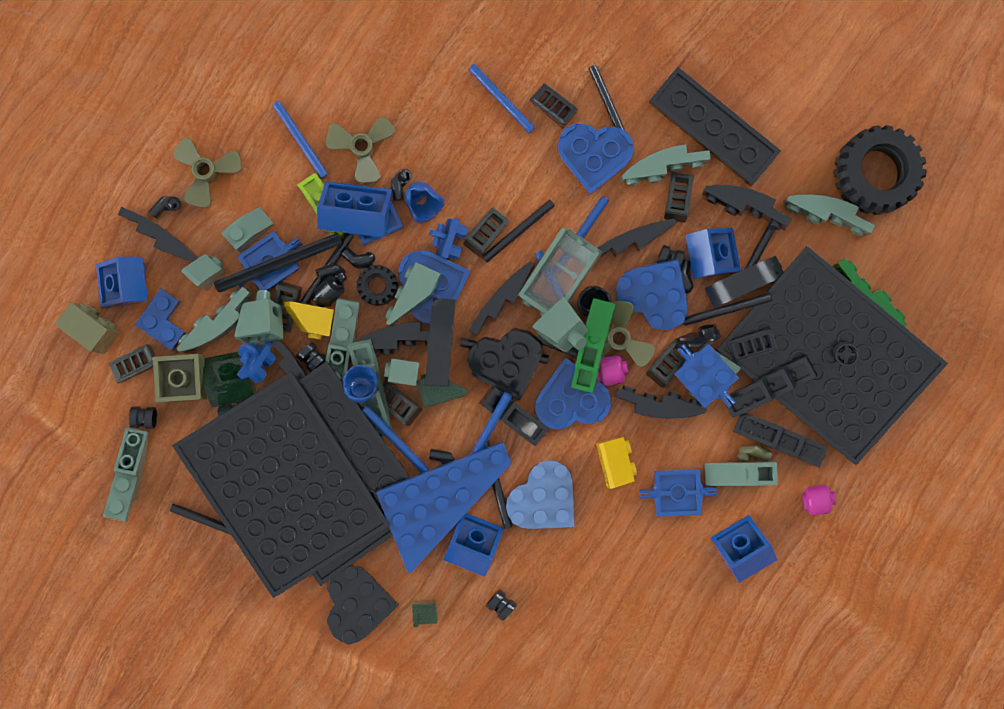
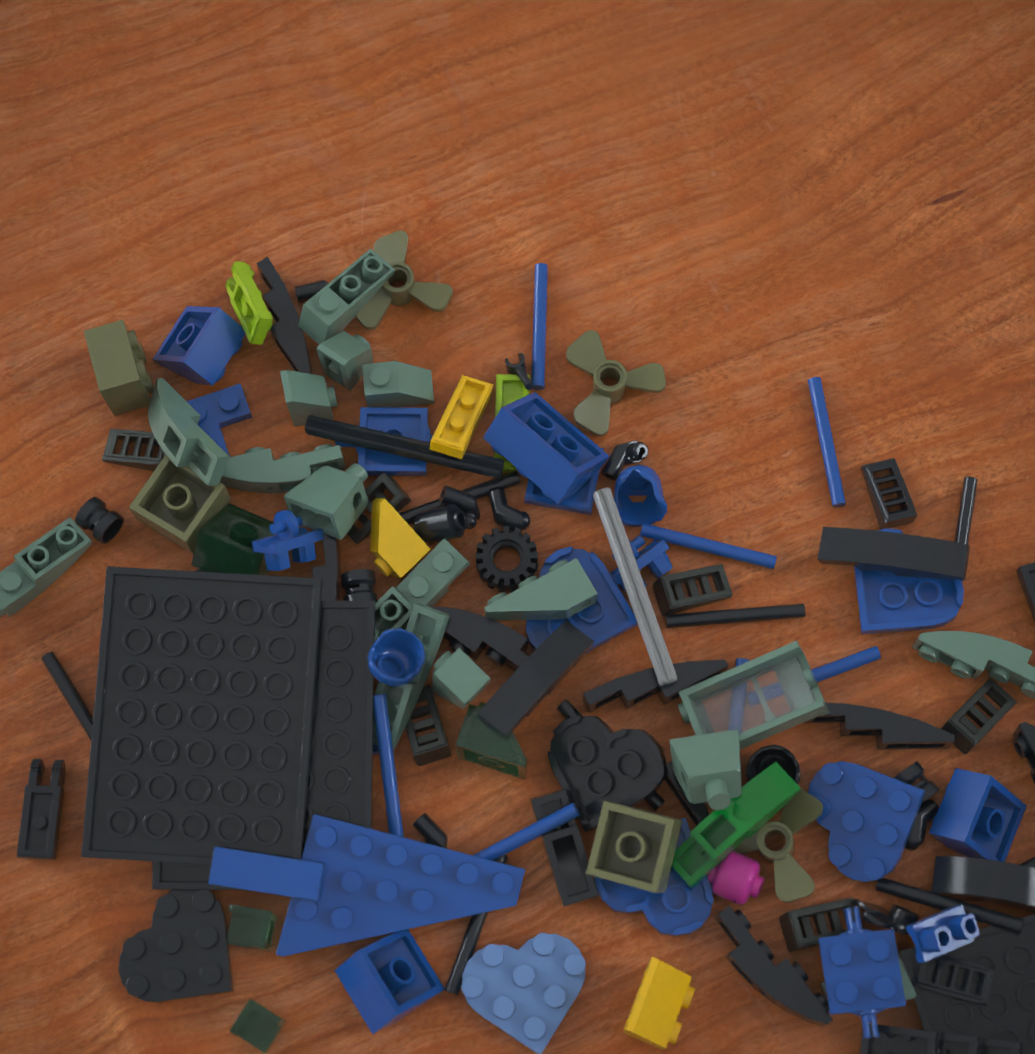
camera: 35 degrees right, 15 degrees down
(131, 240) = (248, 303): none -> lime hinge
(152, 344) = (180, 437): none -> sand green slope
(182, 201) = (344, 297): none -> sand green slope
(208, 234) = (343, 358): none -> sand green slope
(233, 588) = (41, 813): none -> black hinge
(296, 223) = (461, 417): none -> yellow tile
(308, 174) = (519, 370): none -> black hand
(374, 539) = (266, 873): none -> blue tile
(385, 568) = (251, 927): none -> clear green panel
(456, 254) = (635, 586): none -> light grey axle
(491, 197) = (708, 546): none -> blue bar
(551, 394) = (634, 847): none -> olive brick
(580, 140) = (894, 553): none -> black slope
(733, 328) = (942, 932): none -> blue hips

